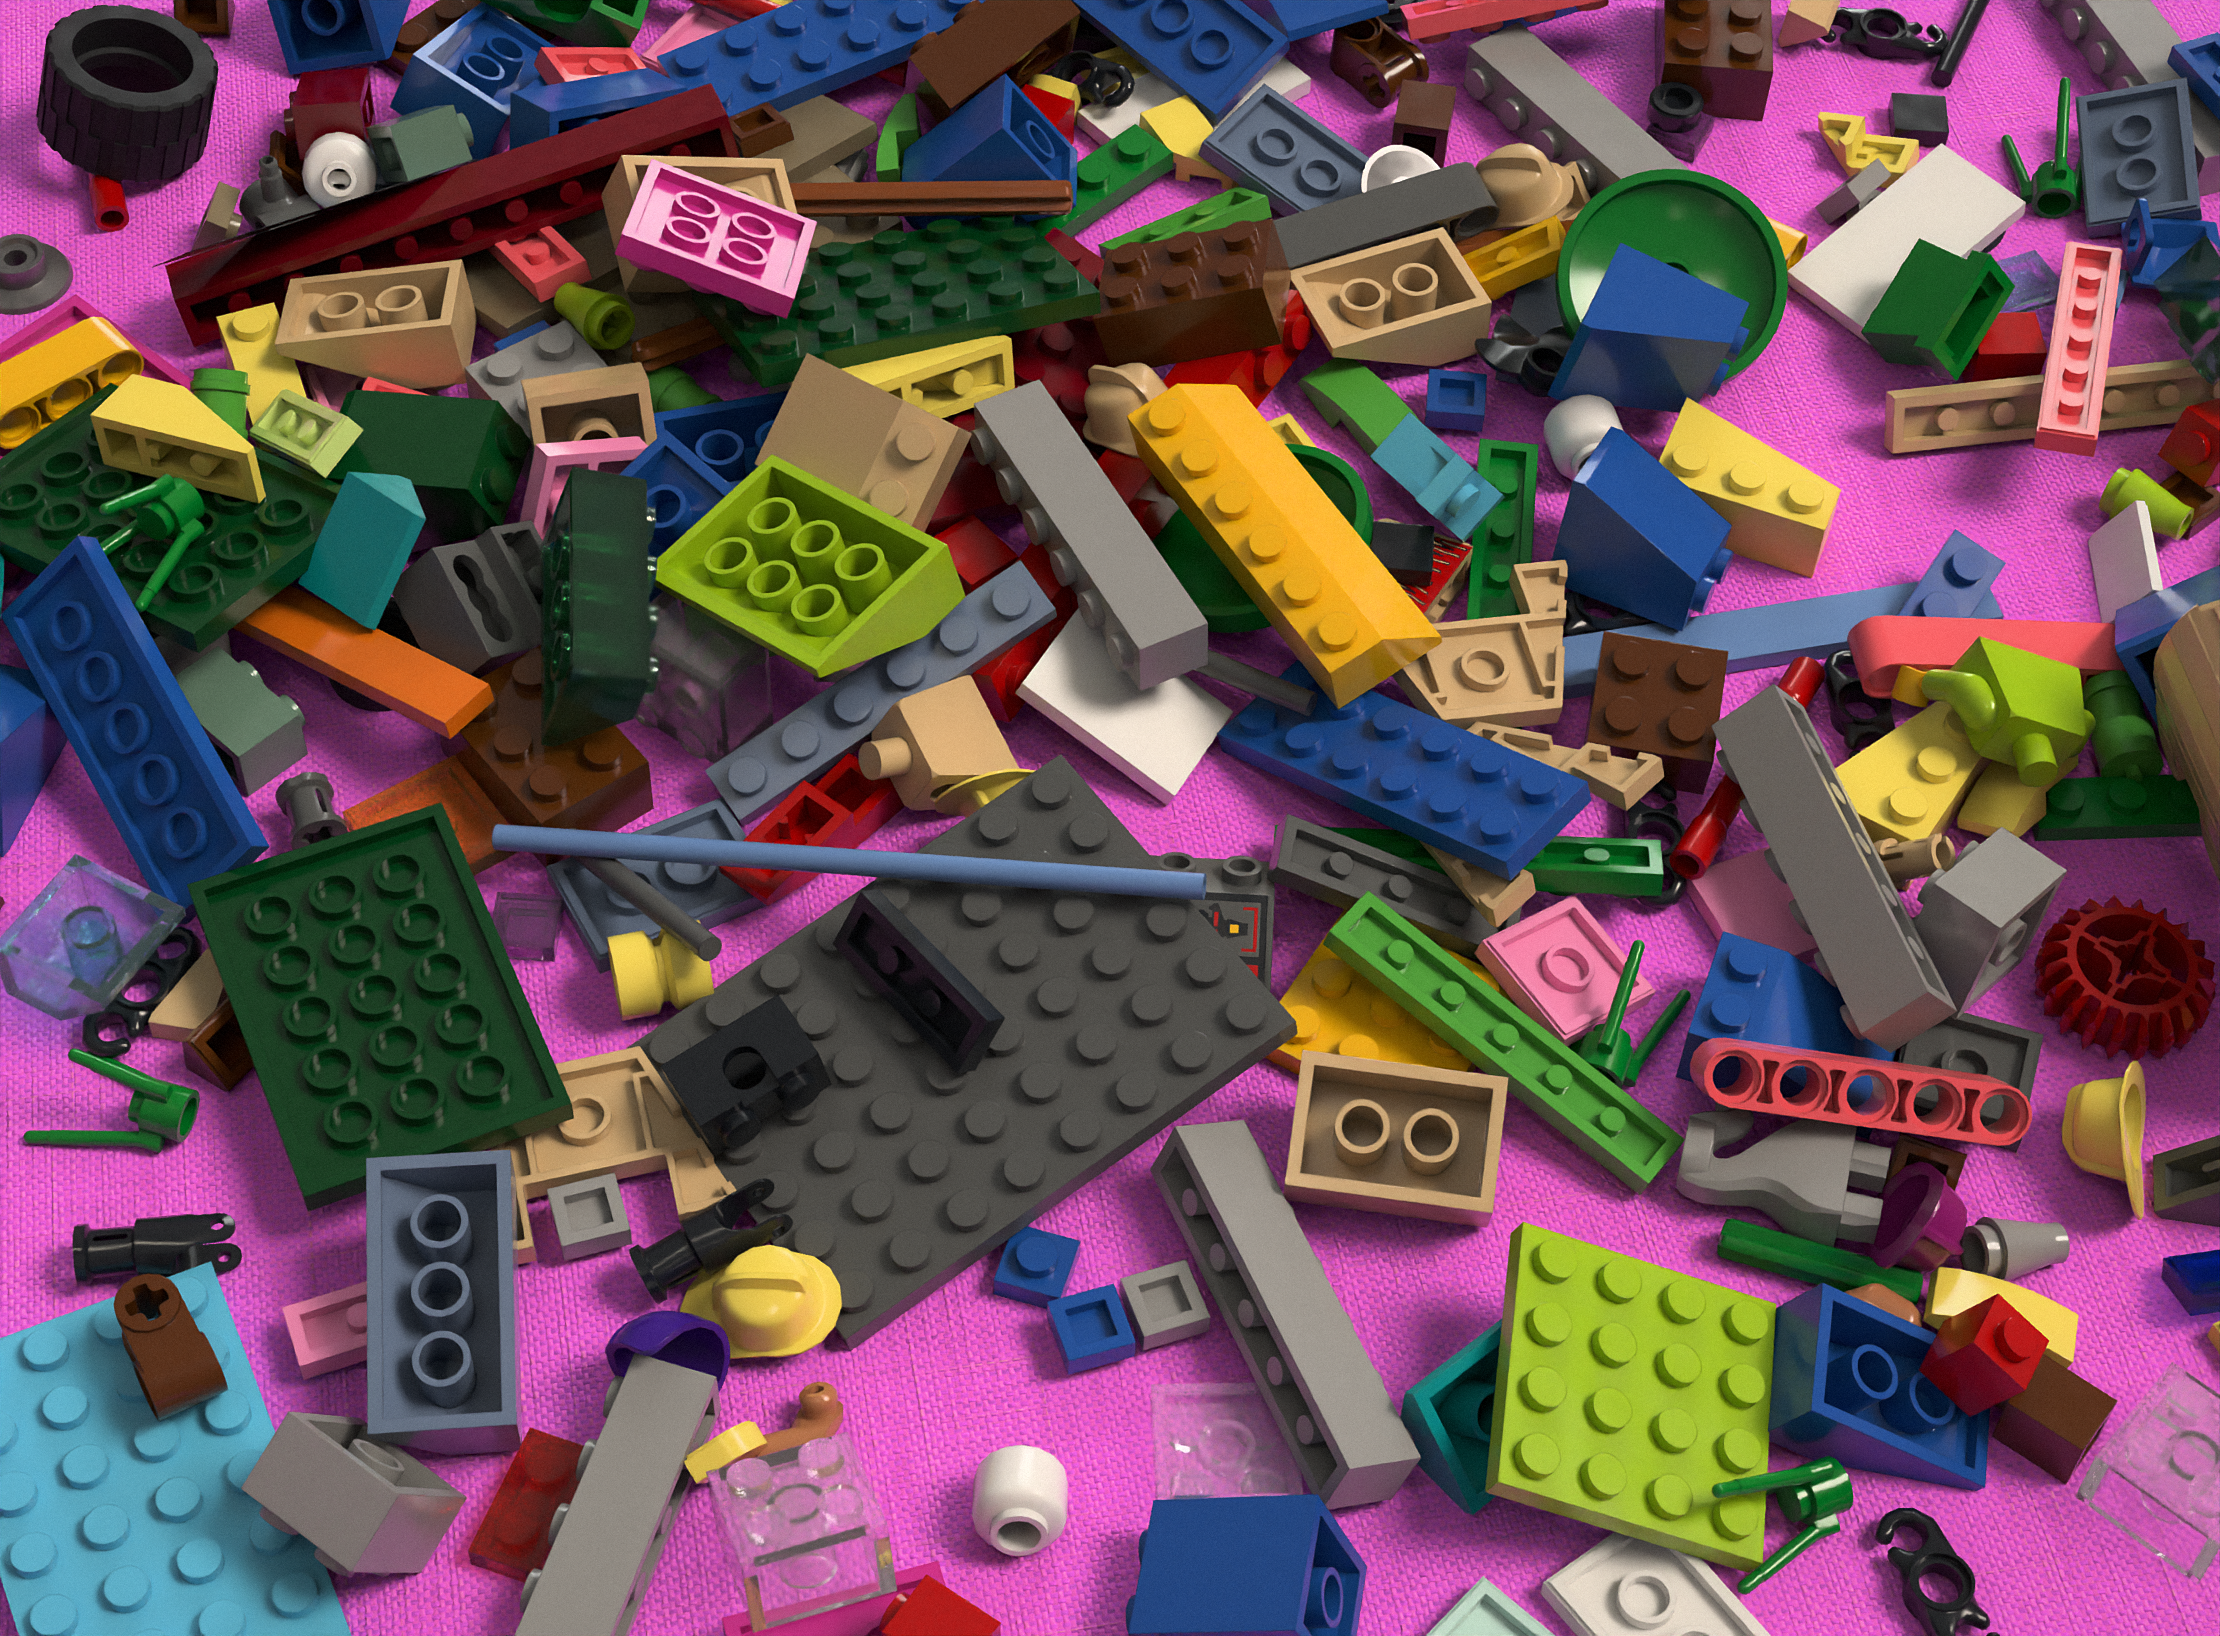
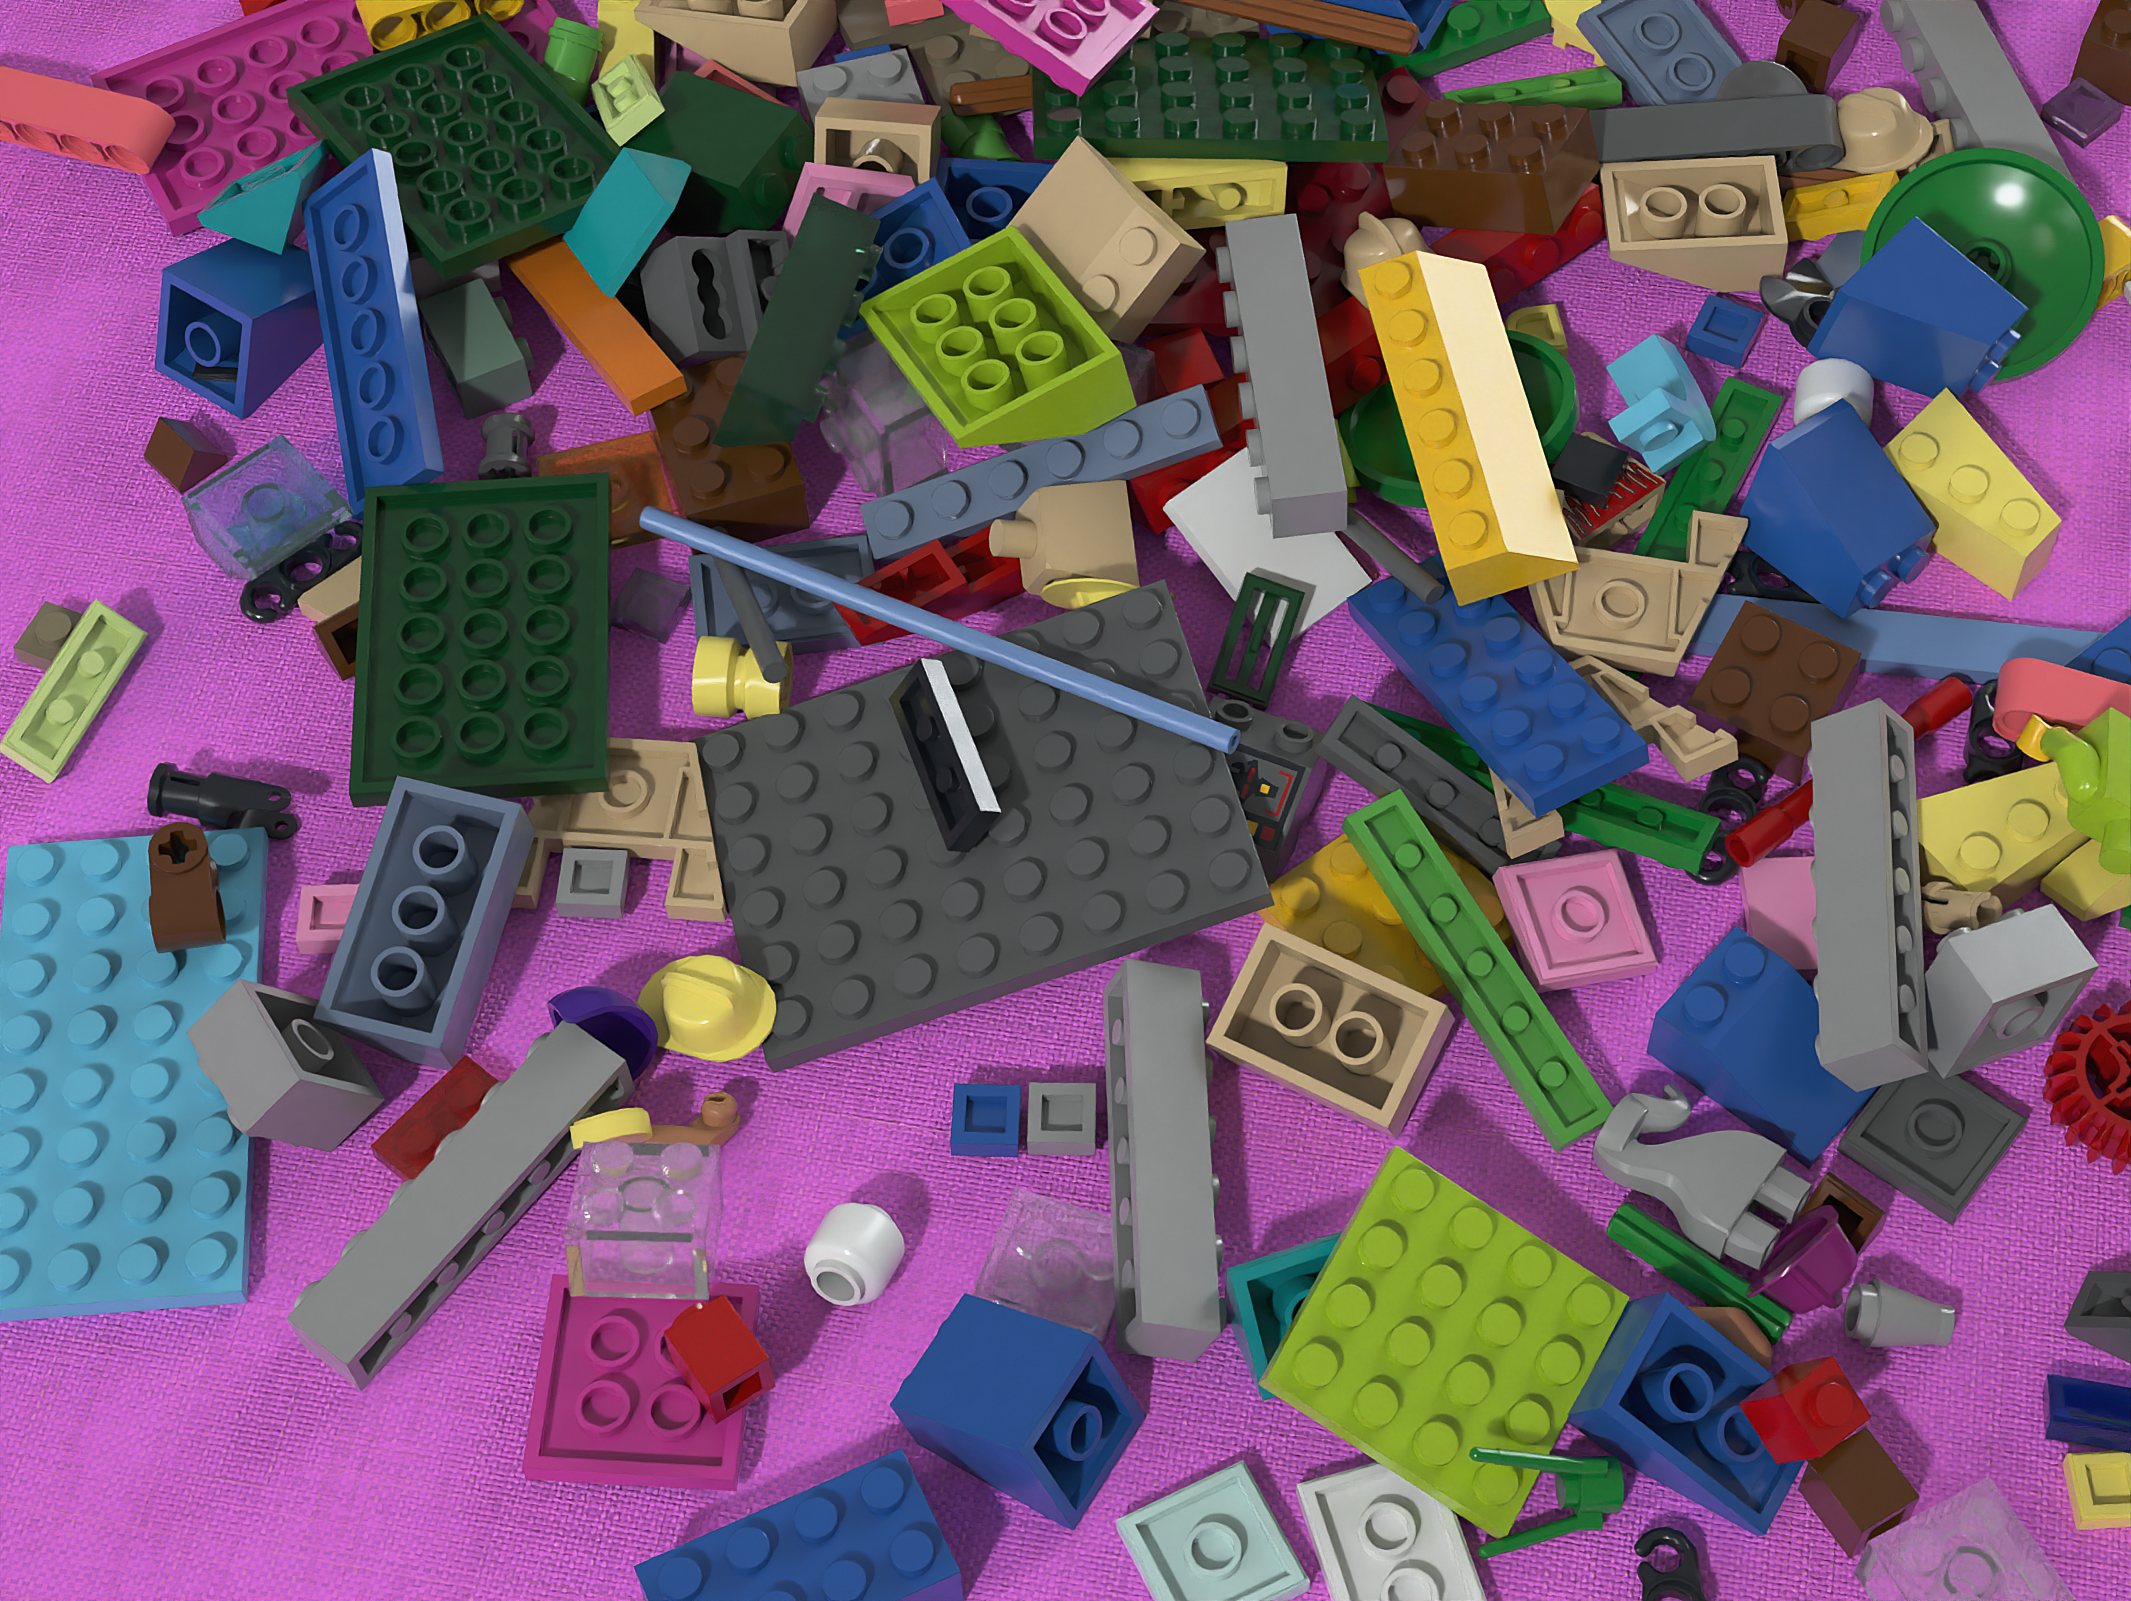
camera: 25 degrees right, 5 degrees up
(156, 1105) = (274, 675): green plant -> none
(167, 511) = (467, 144): green plant -> none
(168, 430) = (499, 73): light yellow slope -> none
(598, 316) = (933, 52): lime cone -> none
(707, 1241) = (677, 936): black piece -> none
(756, 1045) = (738, 786): black brick -> none
(1036, 1267) = (966, 1048): blue plate -> none
(1128, 790) = (1239, 689): none -> dark green tile
(1358, 398) = (1625, 306): bright green slope -> none
(1609, 1046) = (1582, 1006): green plant -> none
(1675, 107) = (2082, 87): black tile -> none
(1890, 1101) = (1818, 1148): coral beam -> none
(1957, 1290) = (1884, 1389): light yellow slope -> none
(2106, 1129) = (2047, 1236): light yellow piece -> none

